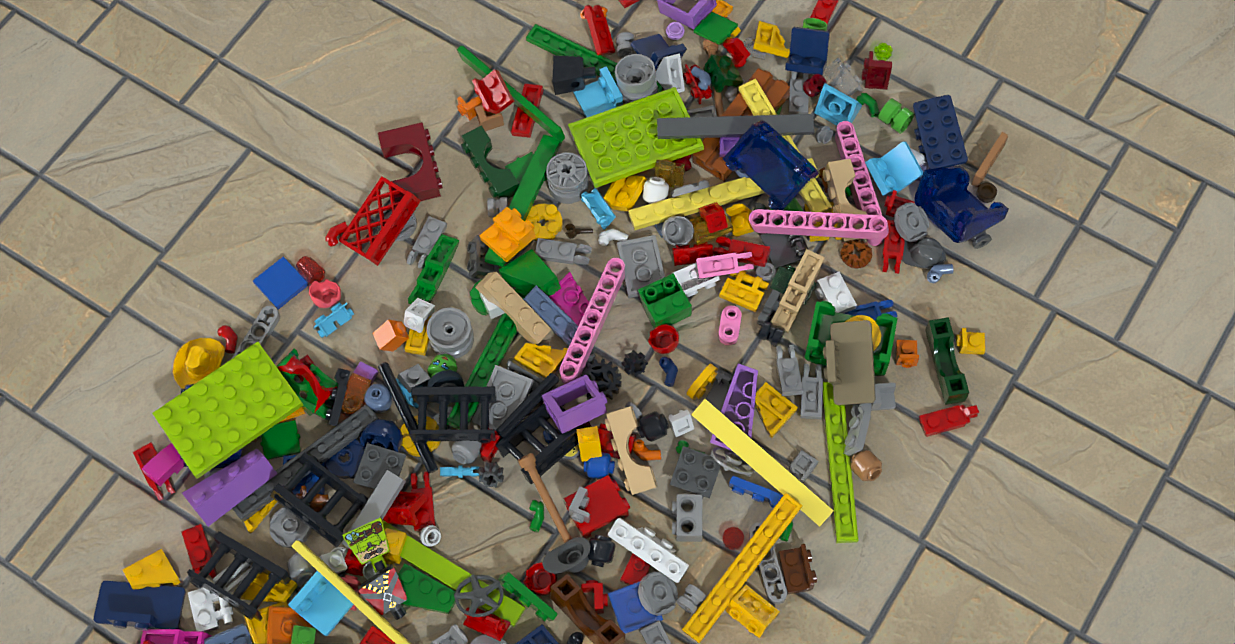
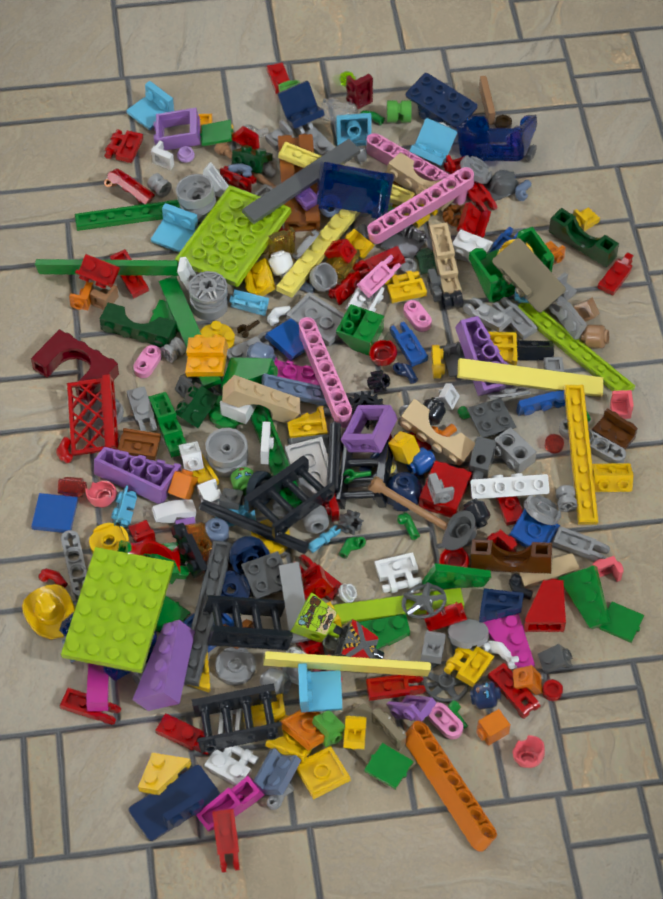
camera: 45 degrees left, 10 degrees down
(290, 331) = (107, 531): none -> yellow plate
(326, 354) = (141, 532): none -> red bracket
(363, 350) = (168, 511): none -> white slope
(365, 297) = (143, 476): none -> medium lavender wedge
(395, 271) = (140, 443): none -> dark orange plate
(404, 359) = (209, 491): none -> white brick
(464, 271) = (196, 404): none -> dark green bracket
(471, 202) = (147, 359): none -> bright pink plate
(475, 494) = (350, 545): none -> green arm
(483, 349) = (266, 442): none -> white plate
(490, 545) = (398, 567): none -> white plate
(529, 437) = (352, 474): none -> green hand
(559, 264) = (260, 350): none -> sand blue head
(562, 479) = (405, 485): none -> dark blue cylinder
(565, 142) = (185, 271): none -> white plate
(570, 74) = (138, 228): black torso -> none
(592, 264) = (287, 339): none -> blue tile
(651, 18) = (161, 157): none -> white bracket
(654, 502) = (482, 458): none -> dark grey torso
(657, 48) = (180, 171): dark blue bracket -> none
(694, 348) = (409, 345): none -> blue hinge
(769, 40) = (262, 118): yellow wing -> none
(775, 67) = (272, 138): none -> light grey bracket
(802, 435) = (534, 350): none -> black slope
(814, 85) = (324, 126): dark red wheel -> none
(826, 549) = (622, 403): none -> coral panel
(861, 271) = (474, 220): none -> red bracket
(882, 433) = (587, 309): none -> medium nougat panel

